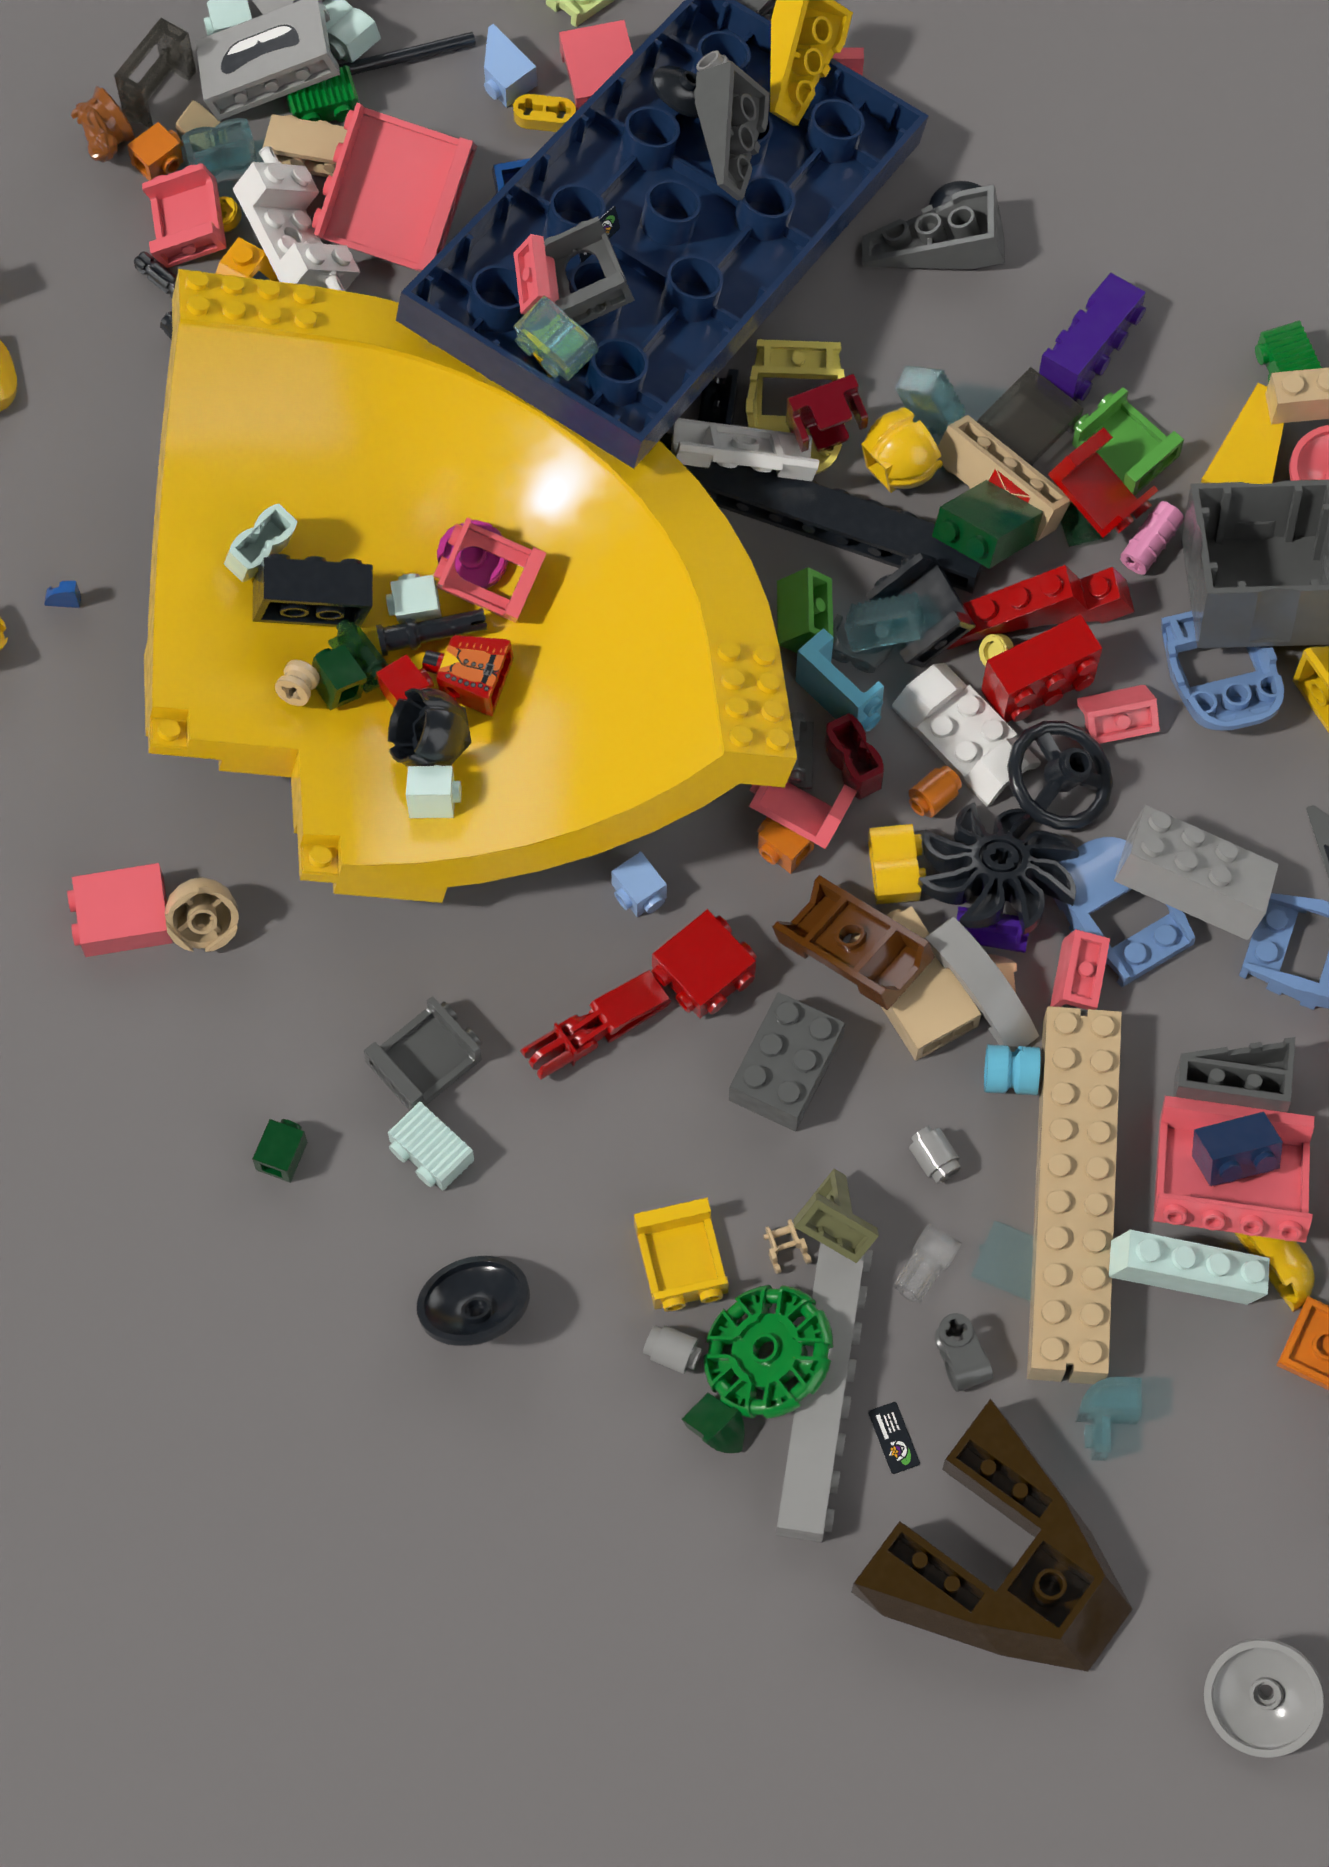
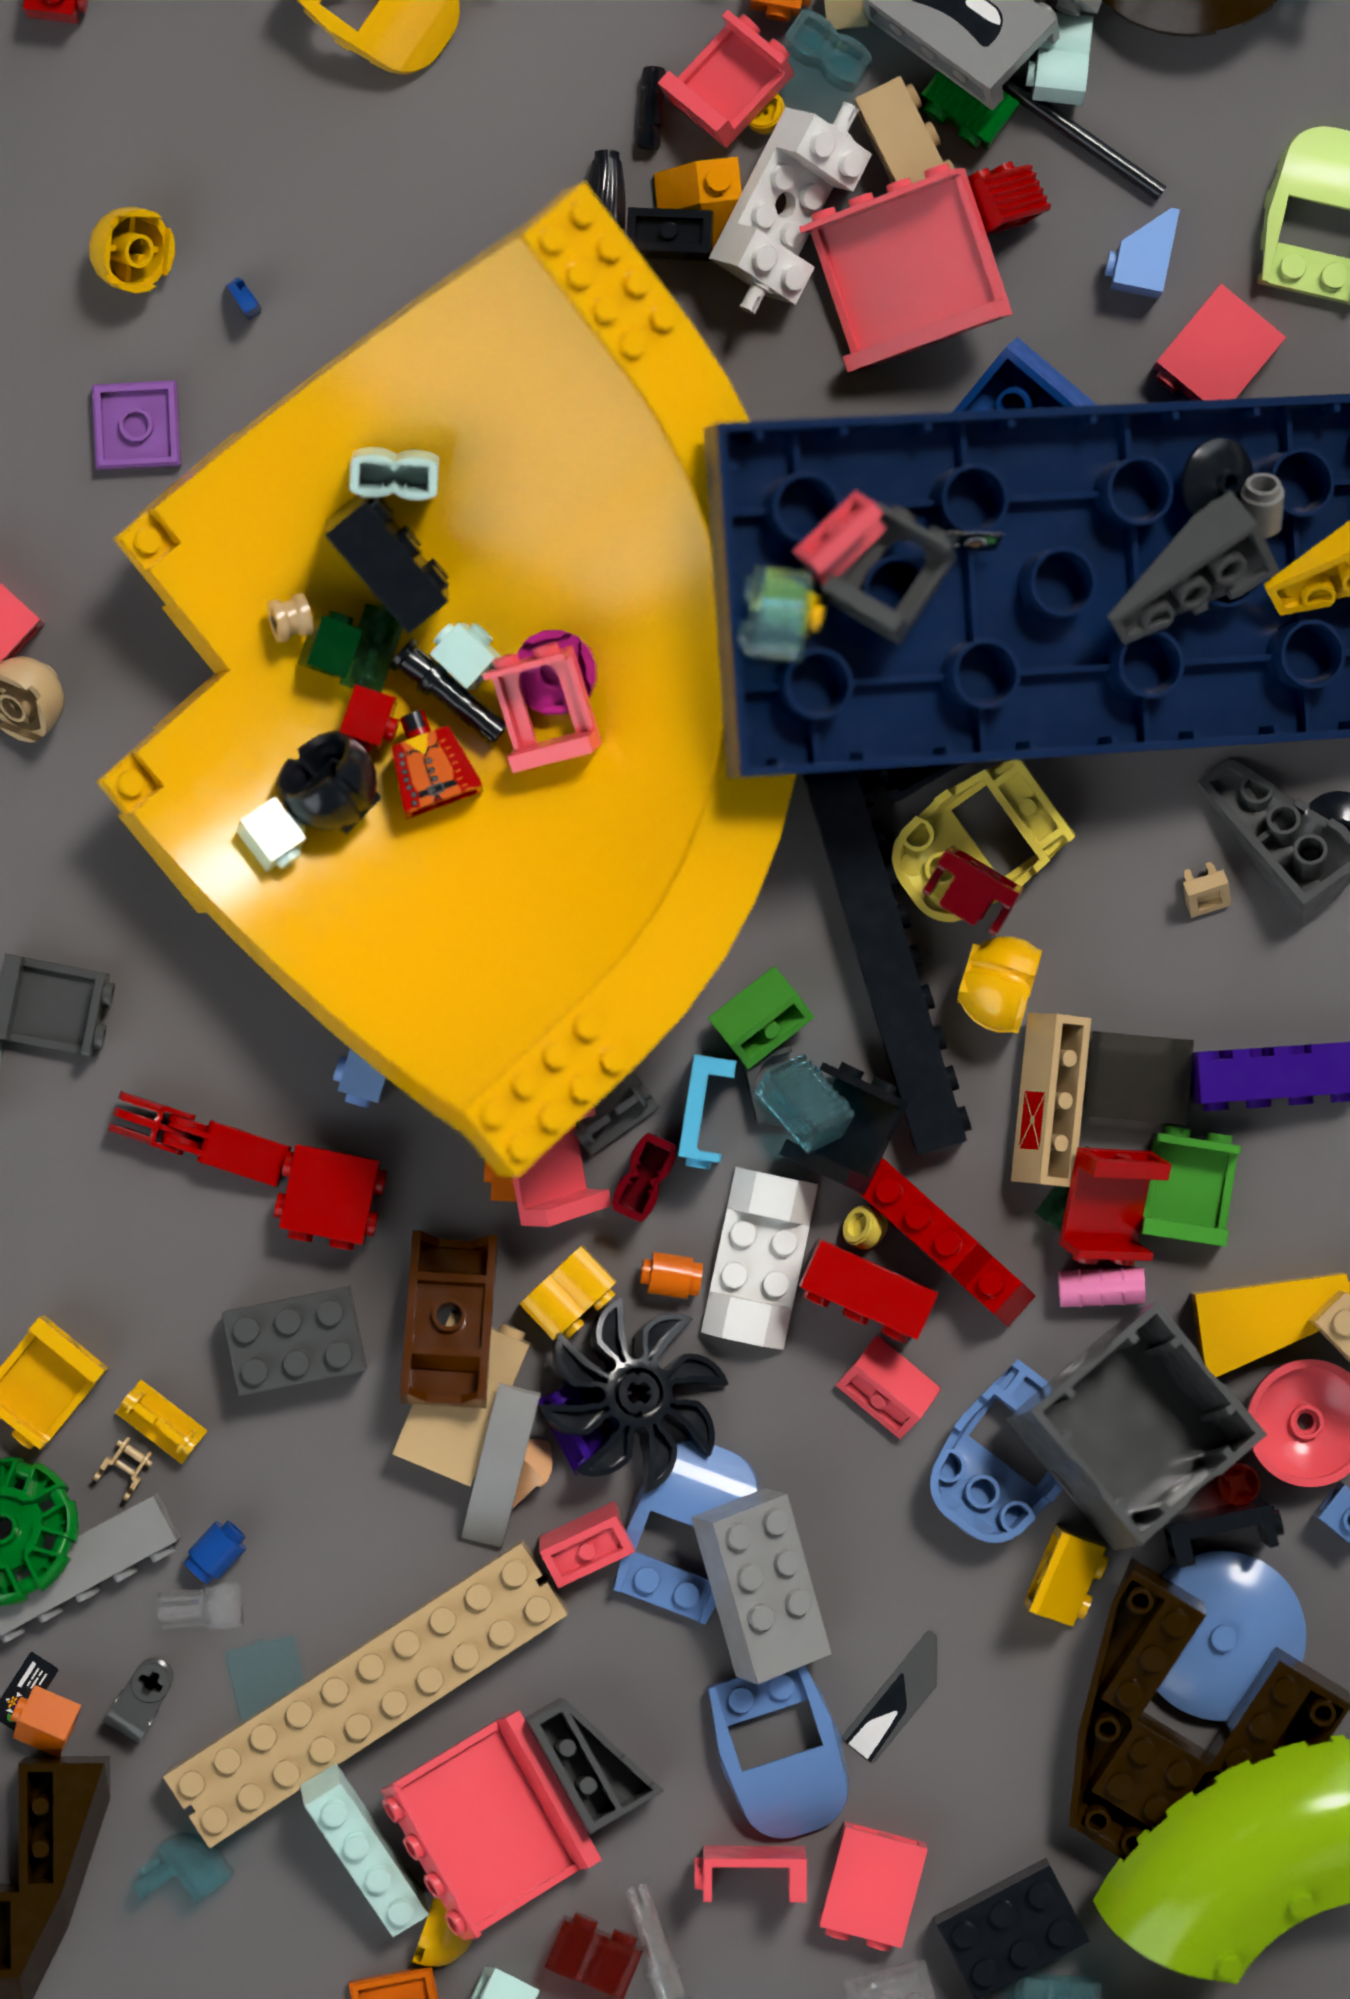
camera: 55 degrees right, 20 degrees up
(85, 722) = (136, 425): none -> medium lavender tile
(403, 106) = (1007, 196): none -> red brick
(544, 112) = (1119, 339): yellow beam -> none
(731, 445) = (879, 837): white piece -> none
(772, 1196) = (161, 1421): none -> yellow hinge
(831, 1220) = (157, 1502): olive bracket -> none
(894, 1224) = (216, 1551): none -> blue brick
(927, 1427) = (45, 1720): none -> orange brick
(930, 397) = (1077, 972): clear light blue brick -> none
(935, 1154) = (310, 1539): light grey brick -> none
(938, 302) = (1206, 892): none -> tan tile
(987, 524) = (978, 1128): dark green brick -> none
(1012, 1069) = (442, 1551): medium azure wheel -> none
(1061, 773) = (775, 1383): black piece -> none
(1237, 1148) = (509, 1816): dark blue brick -> none

